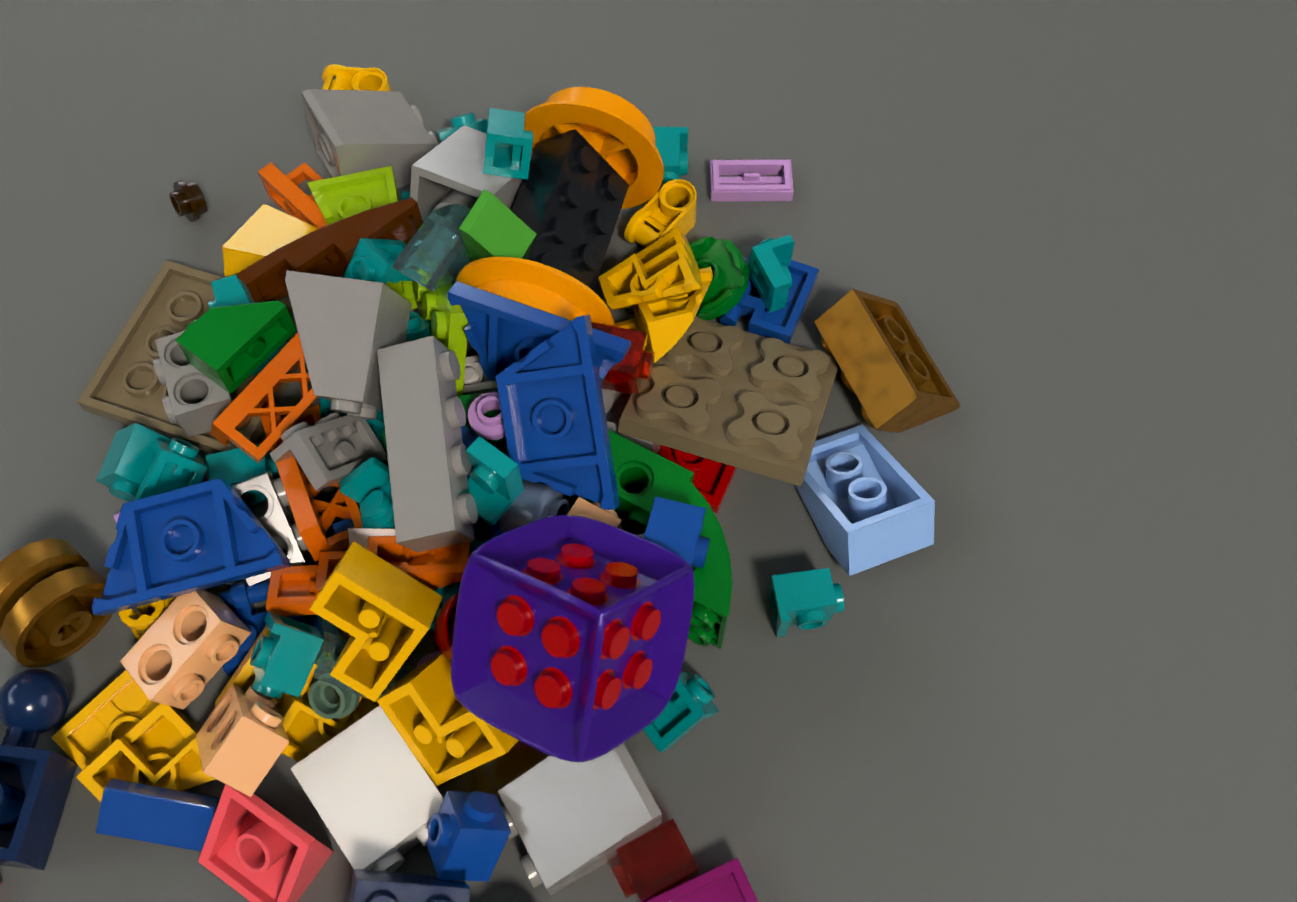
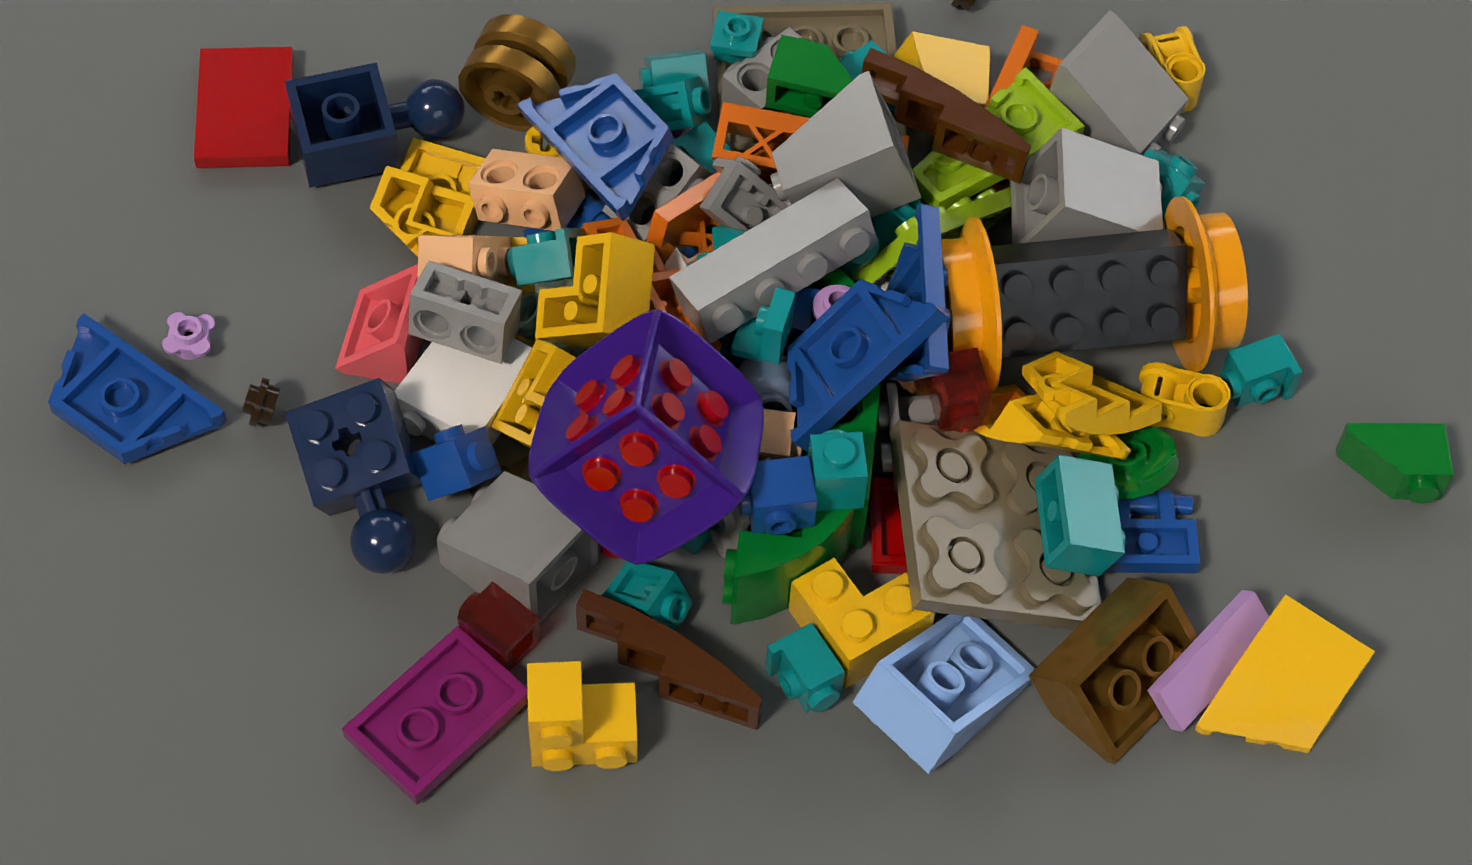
camera: 65 degrees right, 5 degrees down
(136, 388) = (736, 36): none -> teal bracket
(155, 814) = (380, 233): blue slope -> none
(313, 759) = (464, 312): none -> light grey brick
(374, 261) = (954, 158): teal bracket -> none
(436, 249) = (998, 193): clear light blue slope -> none
(494, 230) = (1018, 221): bright green slope -> none
(507, 145) = (1135, 195): teal brick -> none
(668, 474) = (838, 469): none -> teal brick
(752, 185) = (1291, 504): lavender tile -> none
(757, 327) = (1079, 516): none -> teal brick
(762, 707) = (684, 669): none -> reddish brown slope
(770, 270) = (1157, 505): teal bracket -> none
(781, 105) = (1399, 458): none -> green slope
(782, 539) = (856, 626): none -> yellow brick
(792, 822) = (578, 721): none -> yellow brick
(902, 299) = (1207, 662): none -> lavender tile
(941, 255) = (1287, 681): none -> yellow slope

